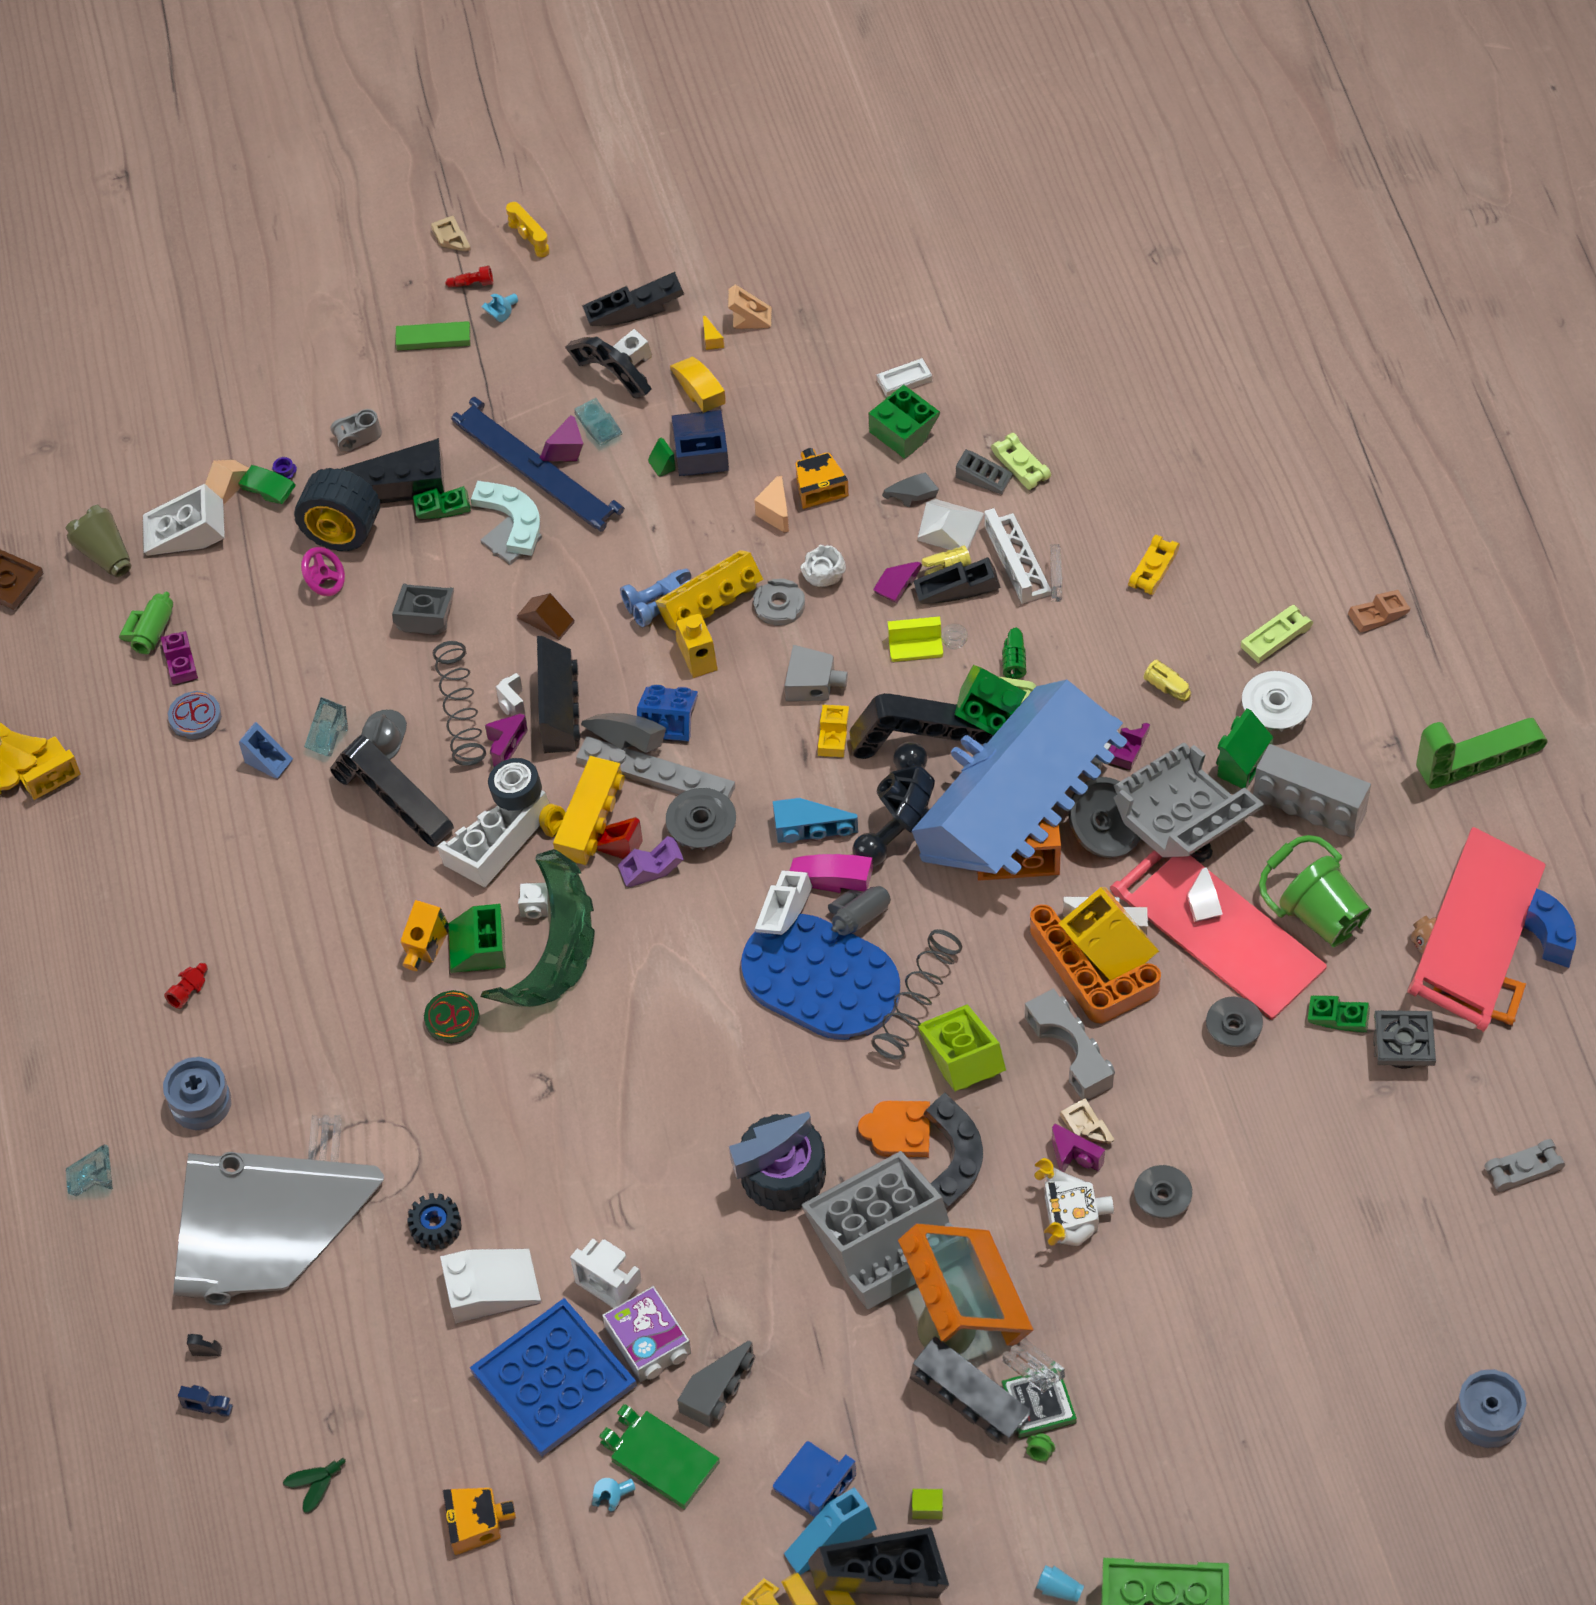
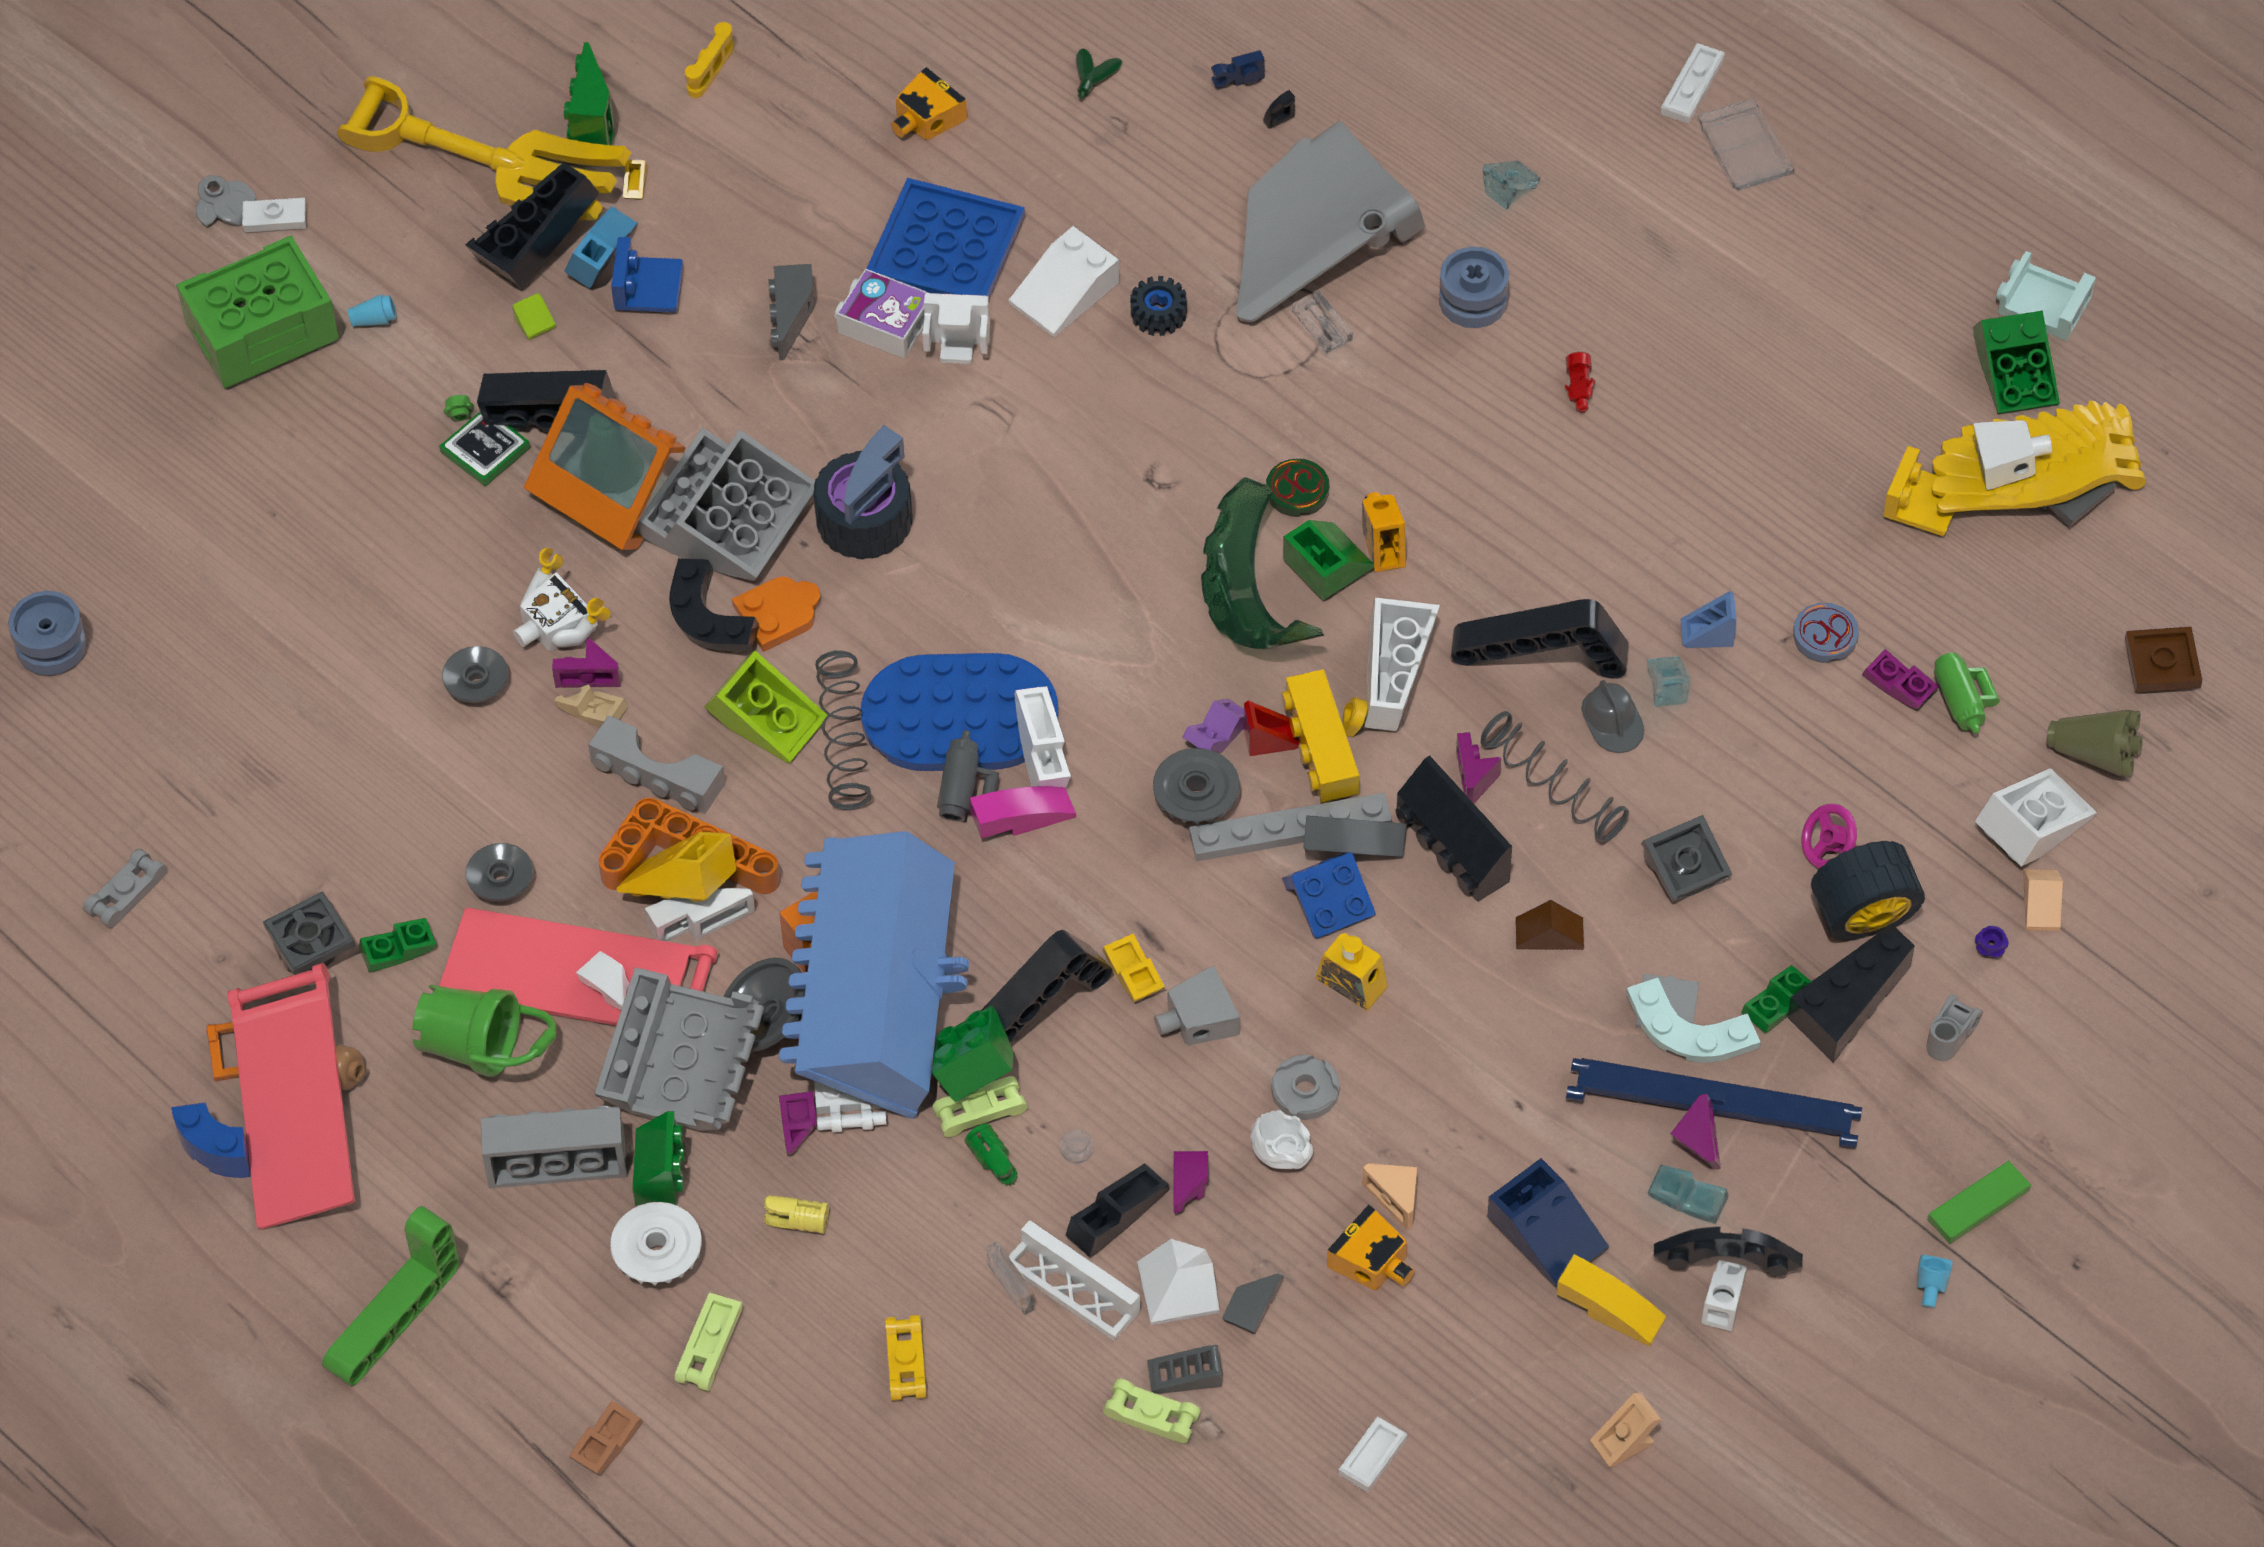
camera: 145 degrees right, 0 degrees up
(267, 483) = (1983, 908): green slope -> none
(449, 234) = (2082, 1349): tan slope -> none
(483, 276) = (2008, 1296): red piece -> none
(507, 695) = (1507, 813): white bracket -> none
(514, 784) = (1403, 698): black wheel -> none
(527, 228) = (1990, 1401): yellow plate -> none
(533, 900) = (1307, 614): white bracket -> none
(612, 1491) = (823, 185): medium azure piece -> none
(627, 306) = (1777, 1366): black slope -> none
(637, 601) = (1440, 983): medium blue piece -> none
(660, 1456) = (803, 236): green tile -> none
(662, 458) = (1579, 1187): green slope -> none
(711, 589) = (1384, 1037): yellow brick -> none
(713, 338) = (1647, 1379): yellow piece -> none
(806, 819) = (1088, 850): dark azure slope -> none
(903, 421) = (1324, 1369): green slope -> none
(904, 795) = (990, 893): black piece -> none
(915, 639) = (1118, 1118): neon yellow panel -> none
(947, 559) = (1150, 1222): light yellow hinge -> none
(1037, 1361) = (506, 451): clear tile -> none

